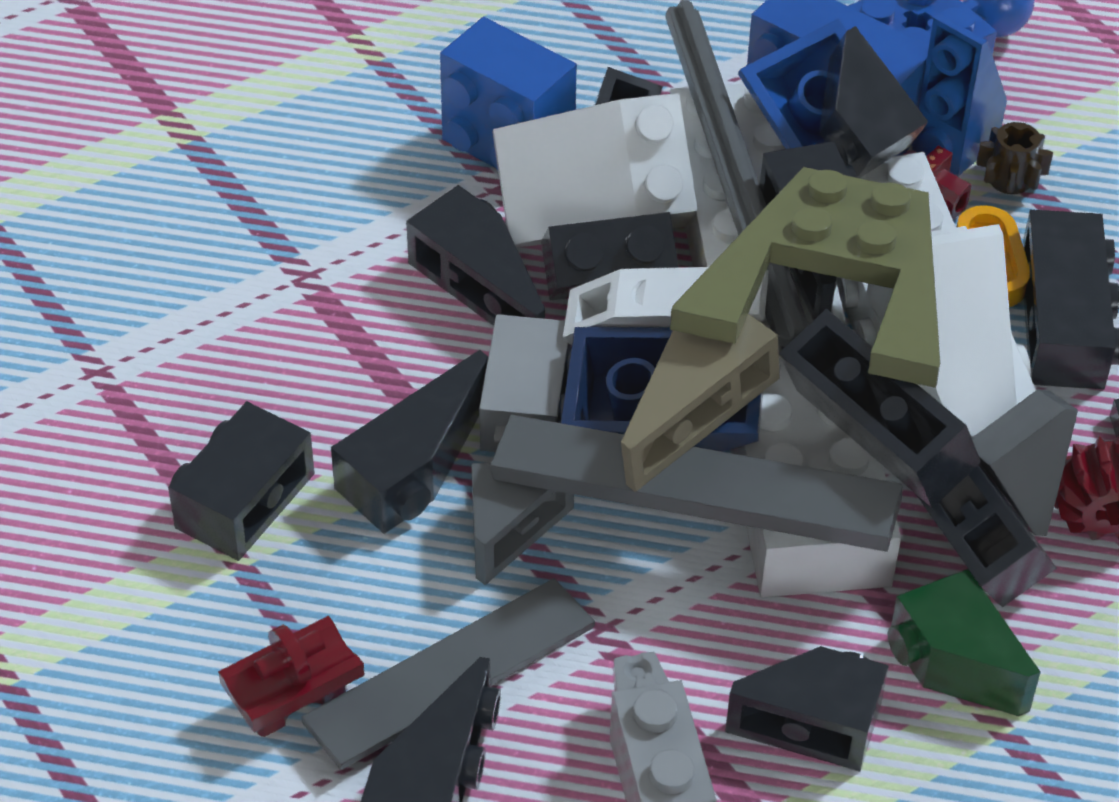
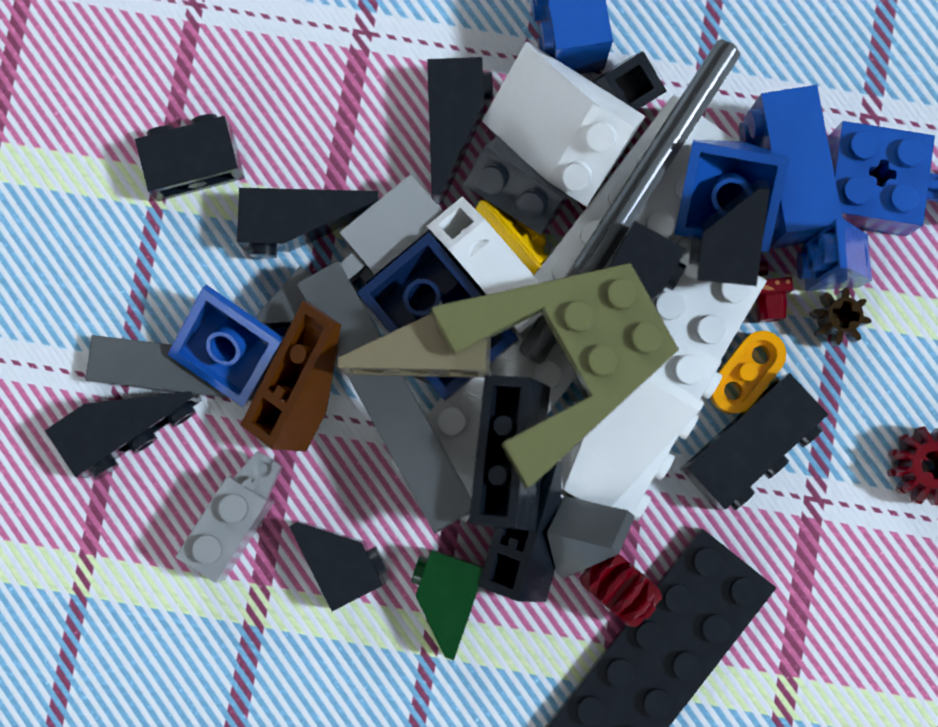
camera: 45 degrees right, 35 degrees up
(291, 674) = (101, 309): dark red hips -> none
(470, 591) = (225, 346): none -> blue slope
(588, 550) = (296, 383): none -> reddish brown slope

